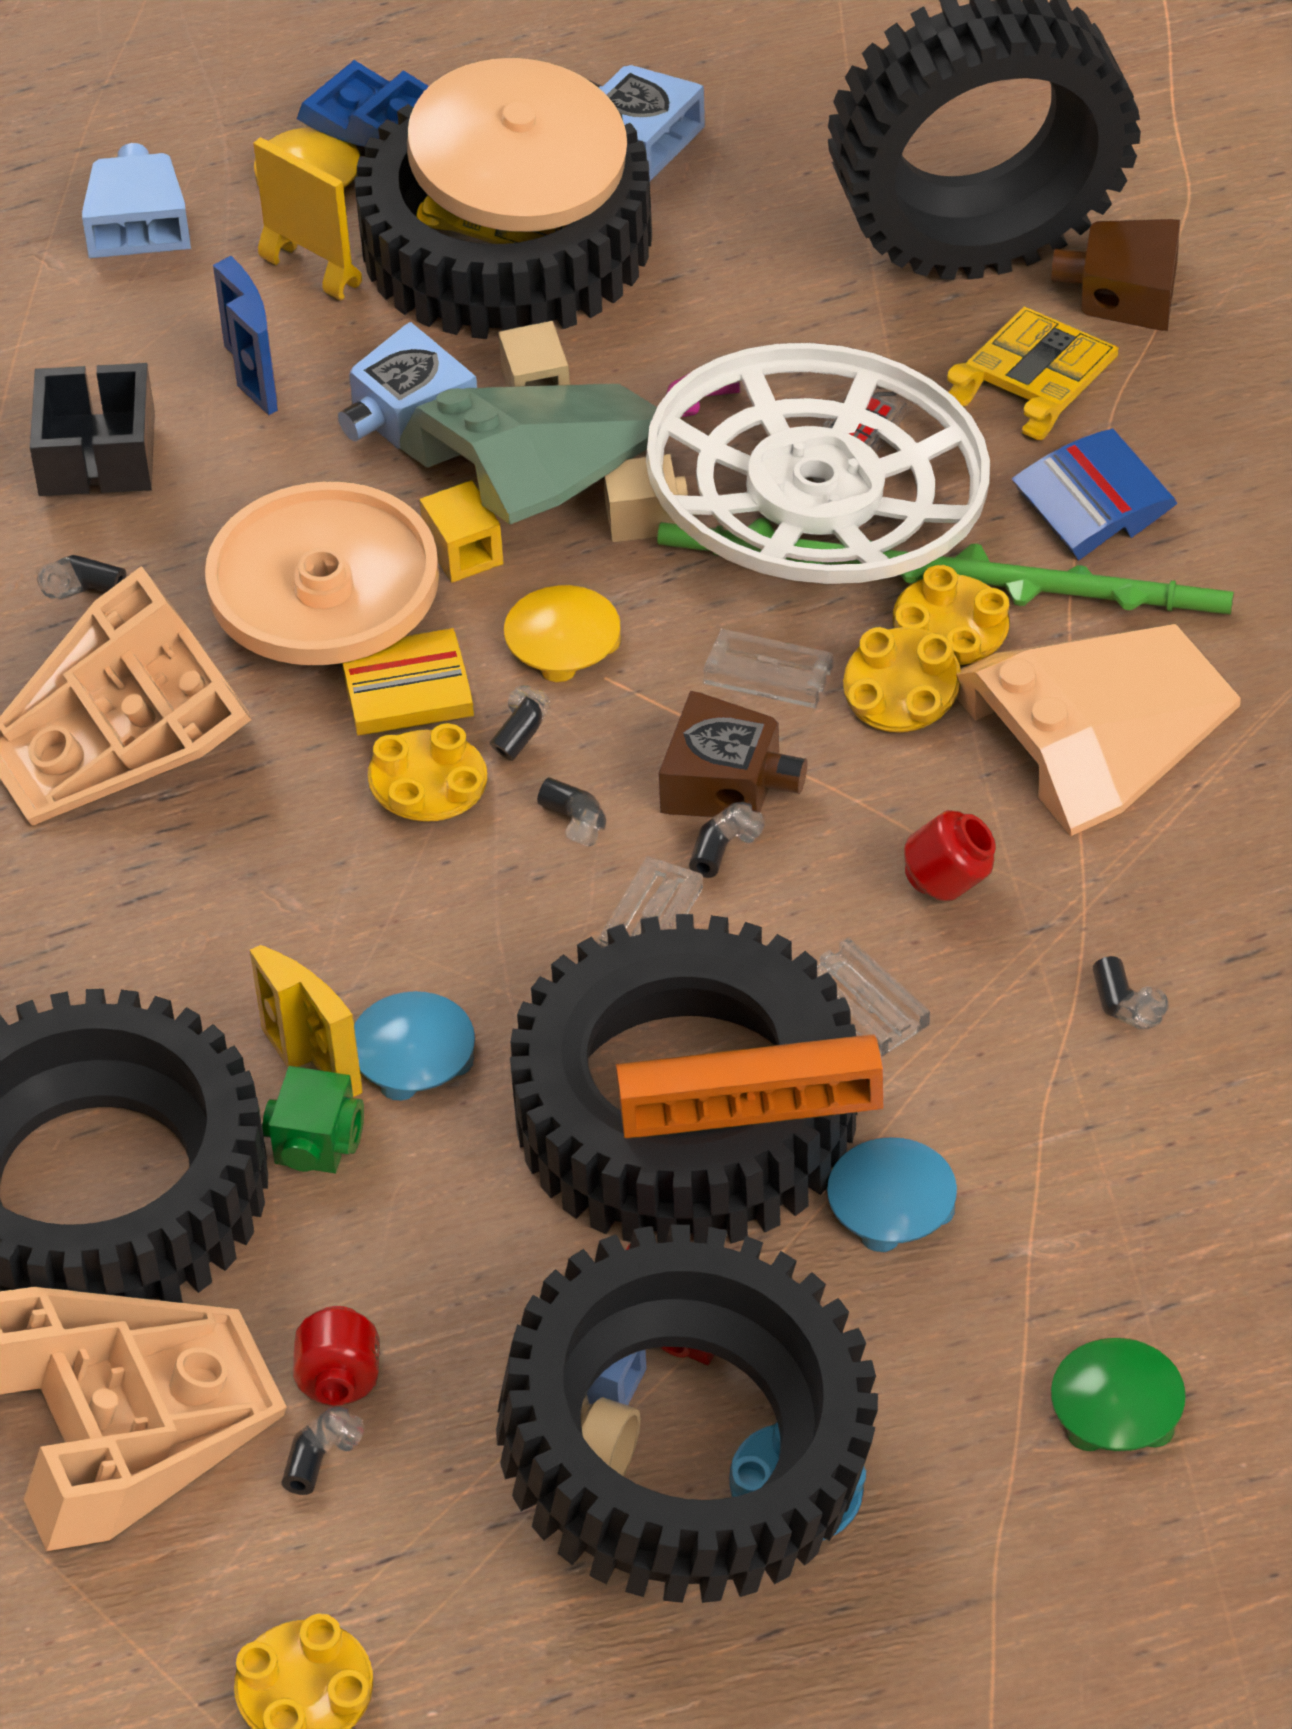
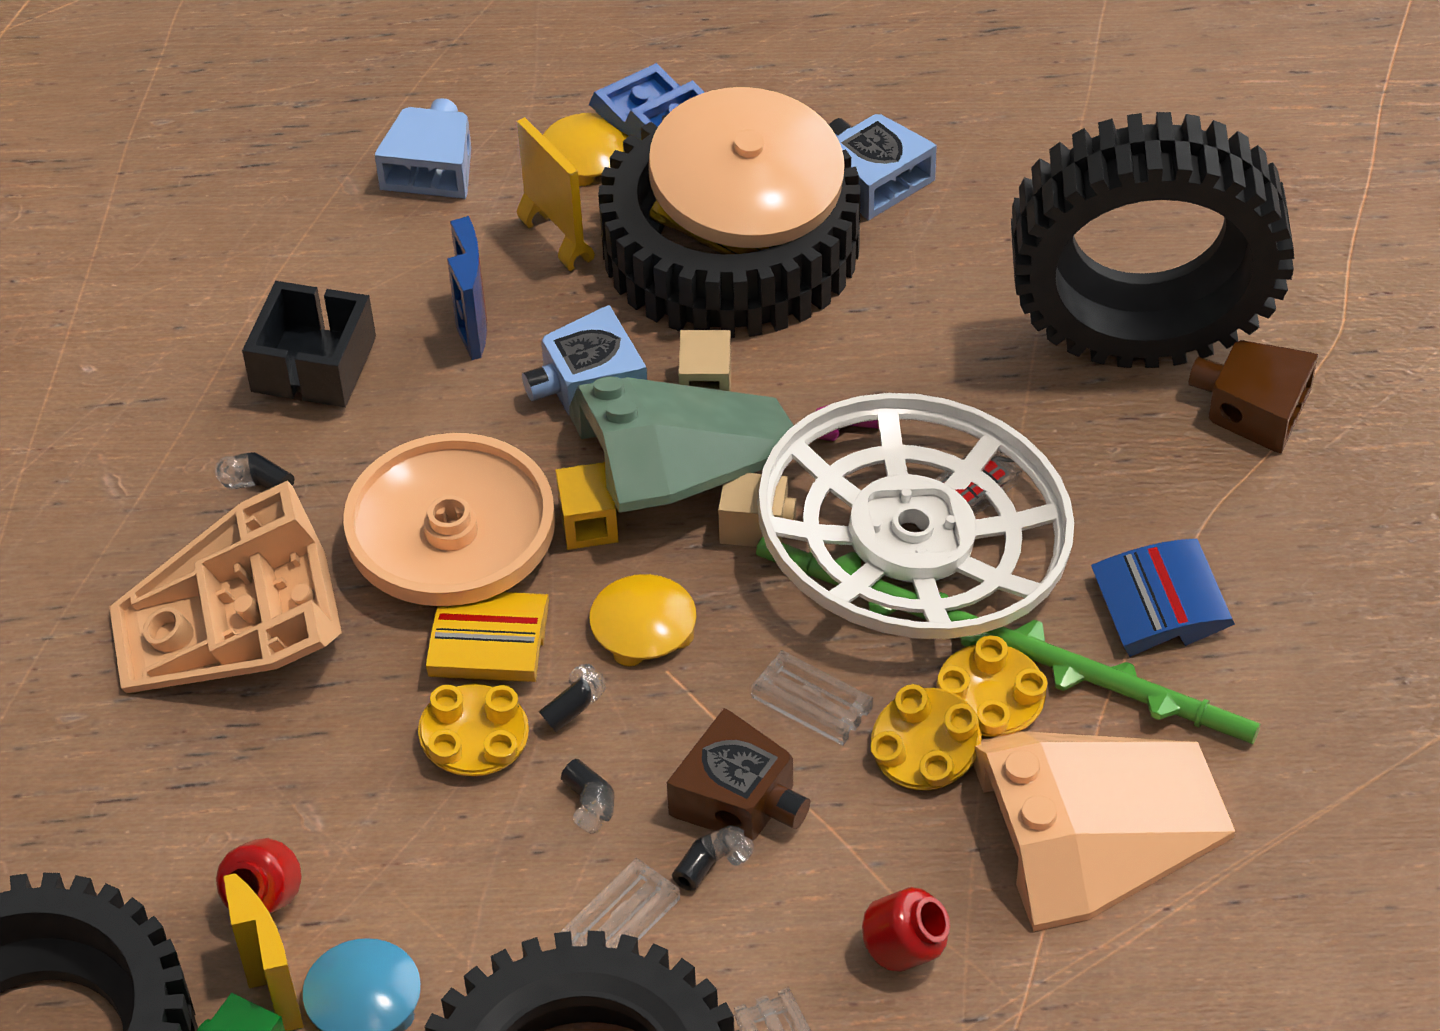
camera: 15 degrees right, 0 degrees up
(266, 932) = (267, 868): none -> red head
(1036, 361) = (1152, 458): yellow flag -> none

